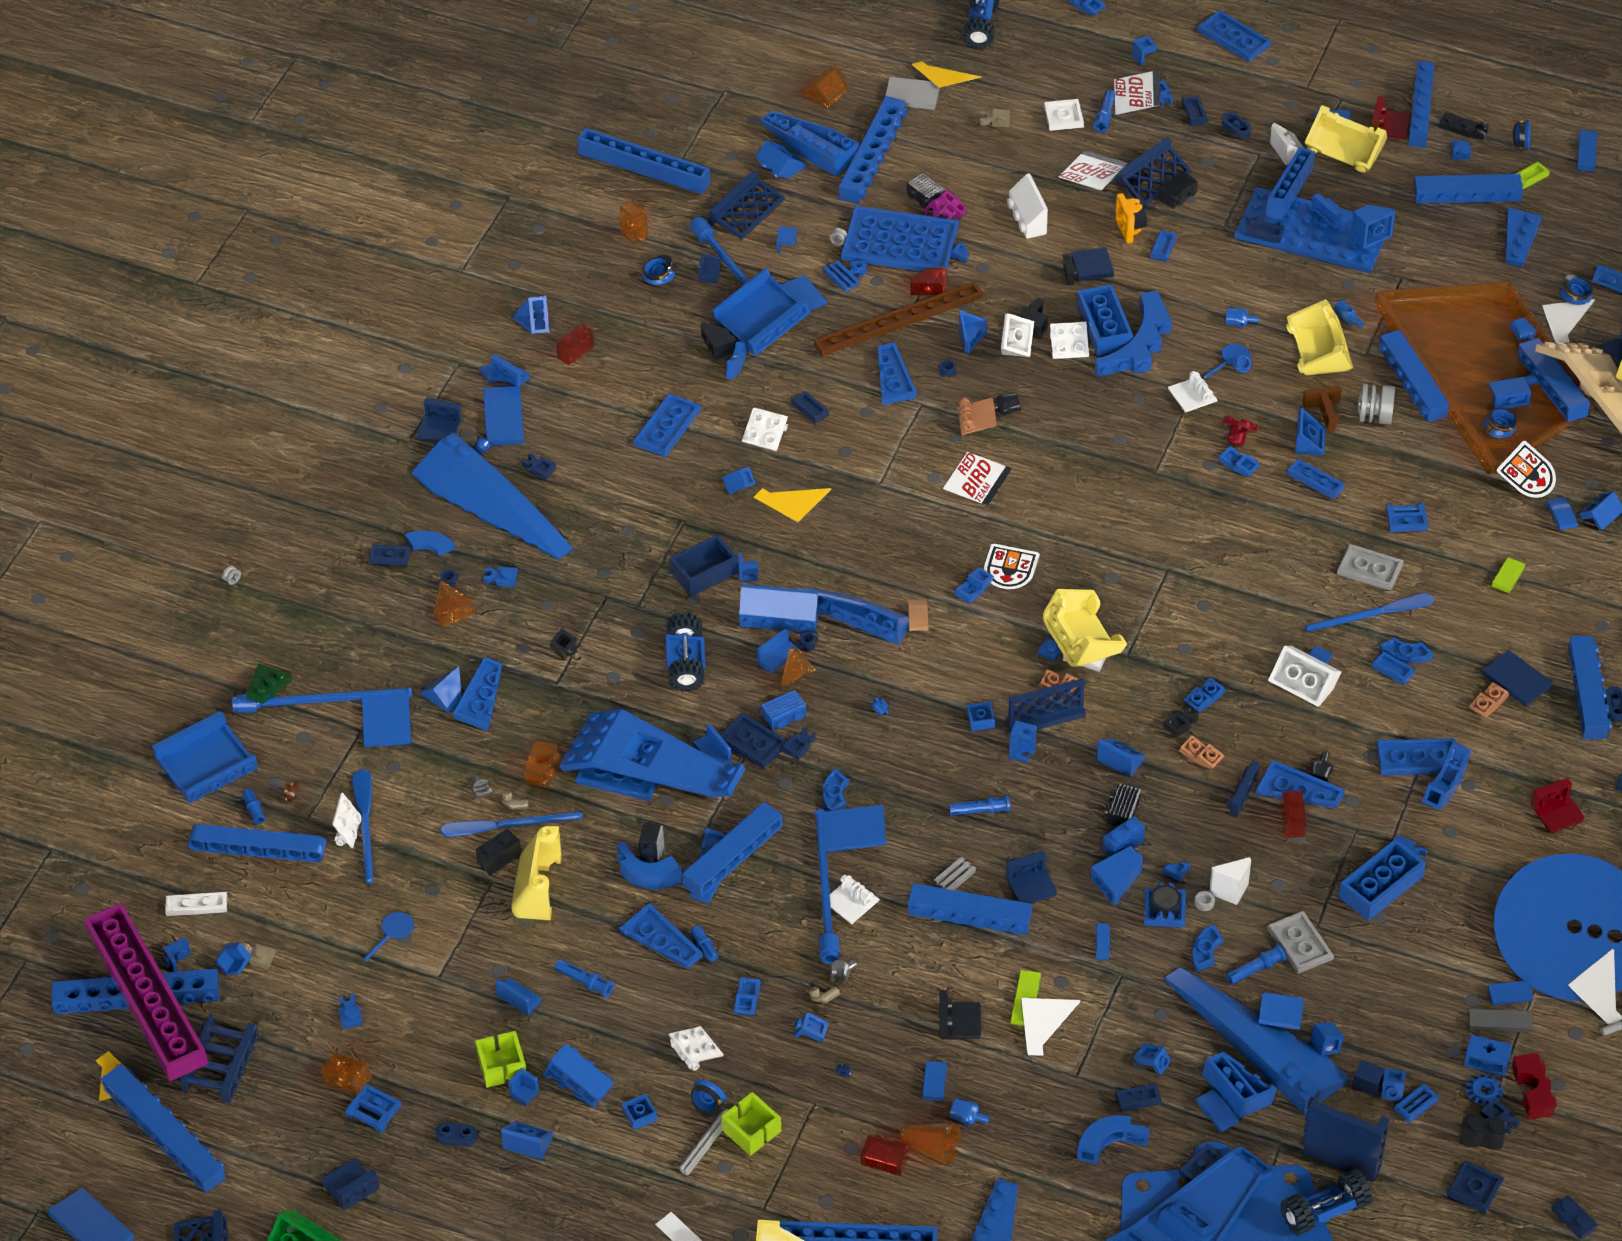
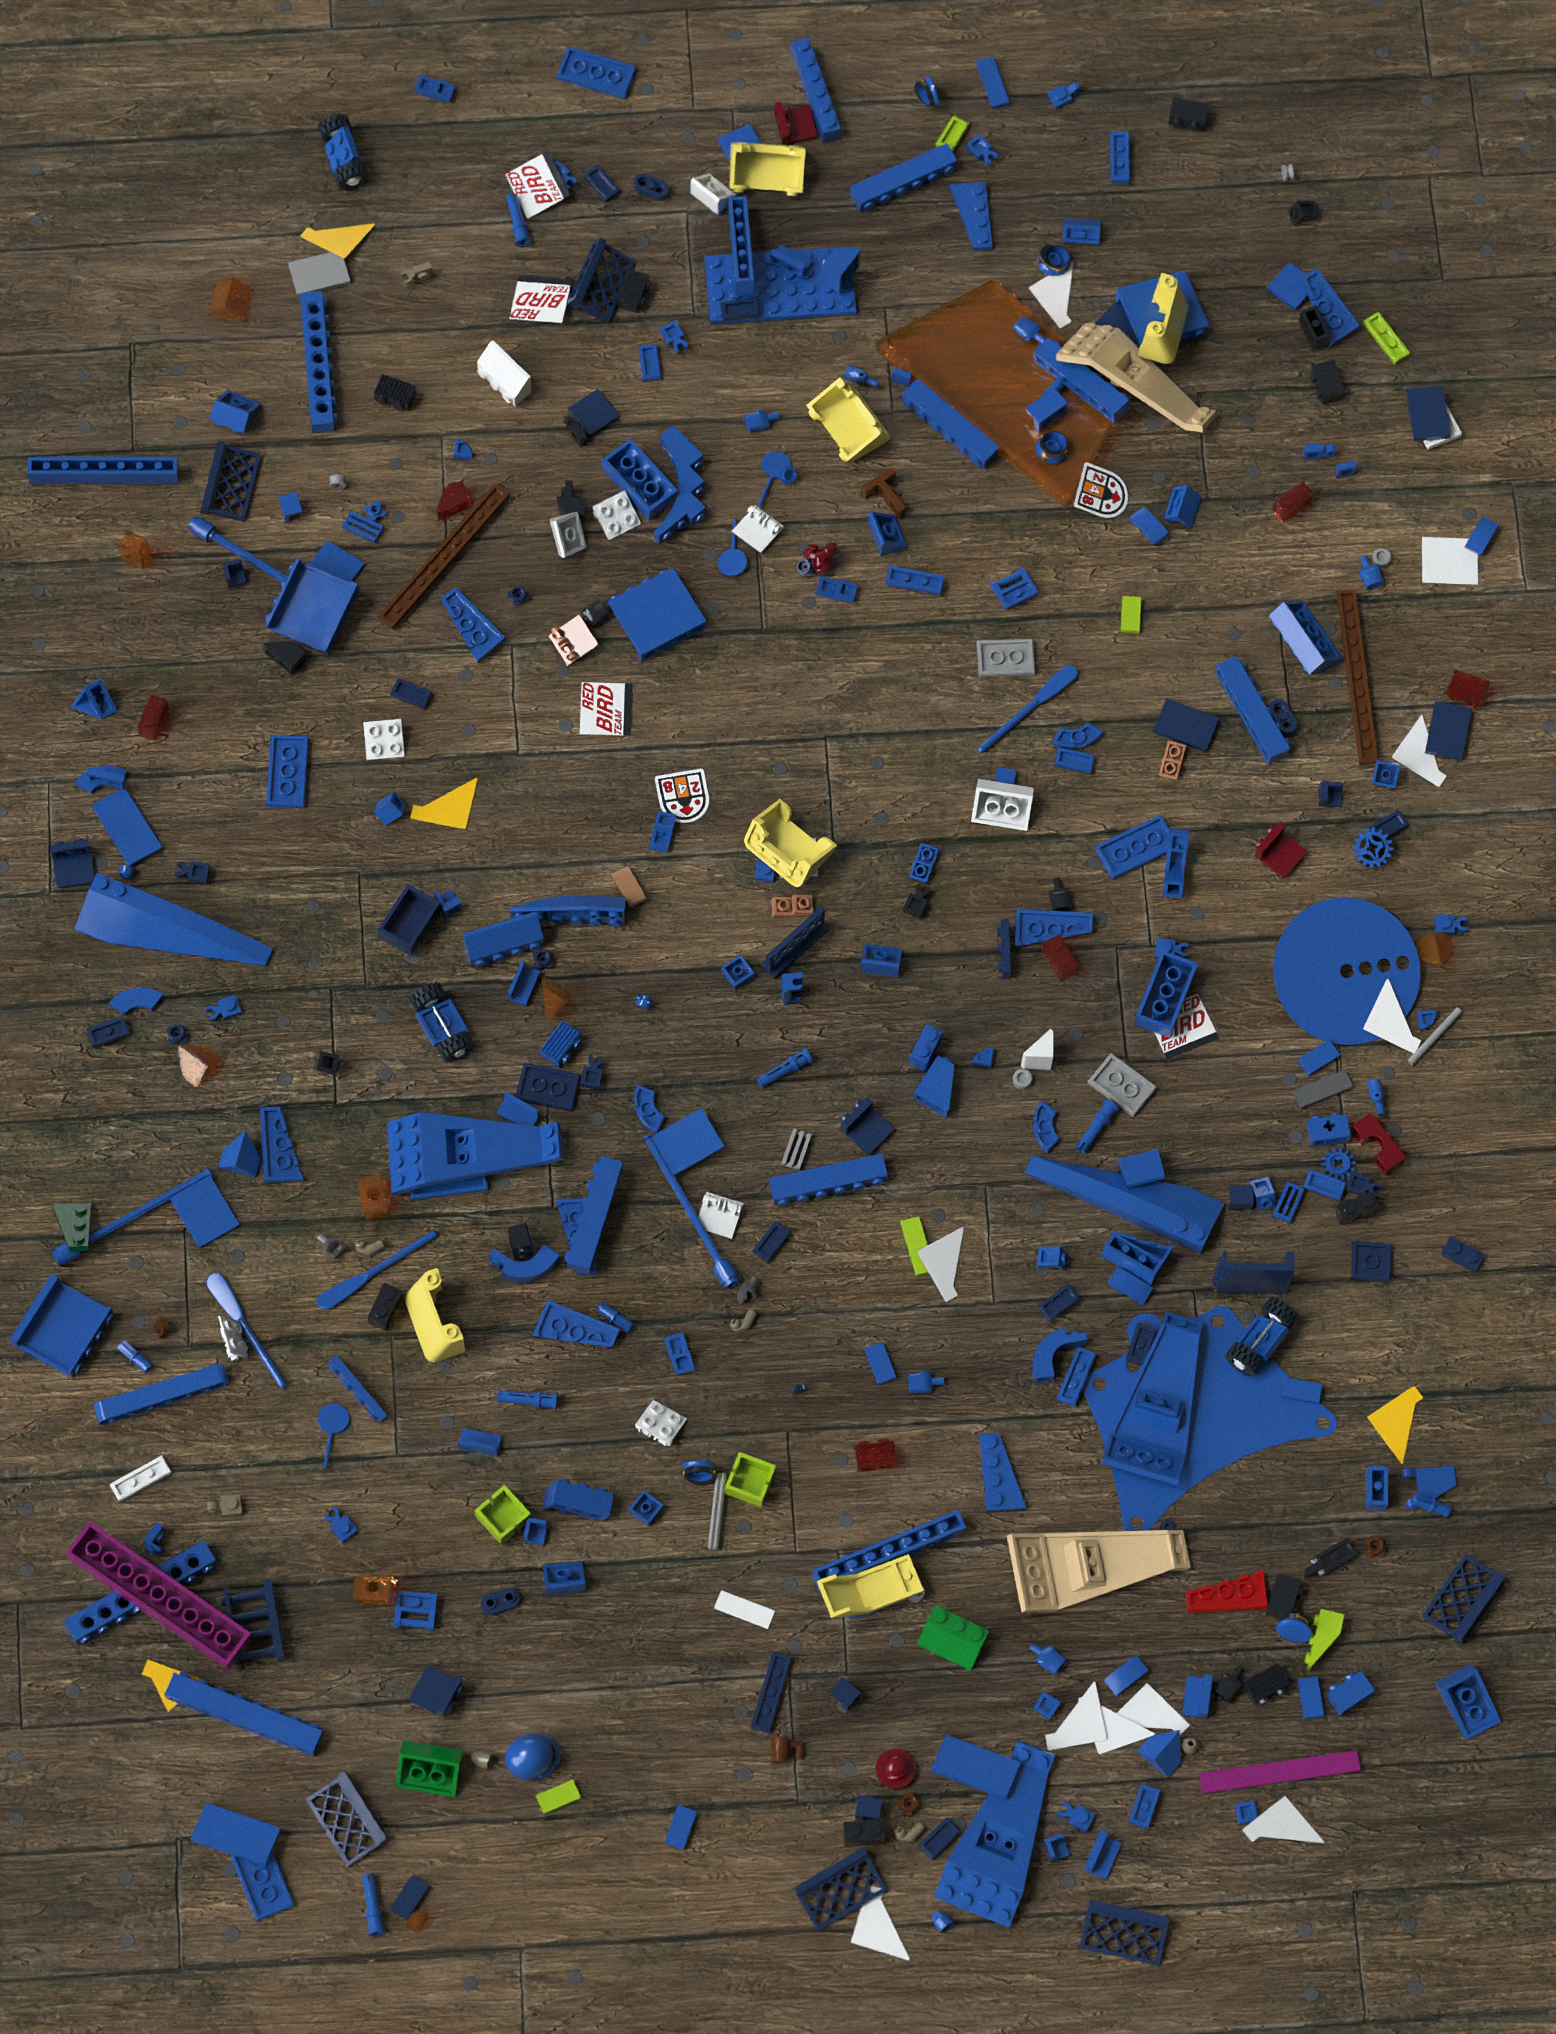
camera: 30 degrees left, 20 degrees up
(233, 958) = (210, 1522): blue panel -> none
(431, 911) = (356, 1388): none -> blue wing
(658, 270) = (185, 595): blue piece -> none
(737, 360) = (317, 676): blue tile -> none
(811, 1026) = (749, 1359): blue bracket -> none
(813, 141) = (254, 375): blue wedge -> none
(888, 941) = (771, 1242): none -> dark blue tile
(899, 239) = (398, 461): blue plate -> none
(933, 1140) = (909, 1425): clear orange cone -> none
(946, 200) = (419, 406): magenta piece -> none
(958, 1019) = (872, 1293): black bracket -> none
(971, 330) = (519, 545): blue slope -> none
(1063, 114) = (480, 241): white plate -> none
(1063, 423) = (657, 614): none -> blue panel
(1102, 941) = (957, 1162): blue piece -> none
(1122, 1168) = (1076, 1376): none -> blue tile
(1123, 804) = (909, 1014): black brick -> none
(1130, 216) = (606, 347): light orange piece -> none
(1142, 47) = (519, 129): blue panel -> none
(1156, 410) = (732, 561): none -> blue piece
(1164, 906) = (992, 1102): piece -> none
(1195, 232) = (673, 335): none -> blue plate
(1201, 754) = (951, 927): nougat slope -> none
(1219, 434) = (801, 566): none -> dark blue plate
(1326, 1038) = (1189, 1174): blue panel -> none
(1376, 404) = (931, 475): light grey wheel -> none
(1385, 325) = (901, 377): none -> blue tile
(1393, 923) = (1190, 1031): none -> sticker
(1460, 149) = (874, 130): blue bracket -> none
(1460, 1100) = (1324, 1185): none -> blue tile
(1464, 126) = (865, 99): black hinge -> none
(1551, 191) = (981, 148): none -> blue plate
(1553, 1043) = (1377, 1095): none -> blue piece

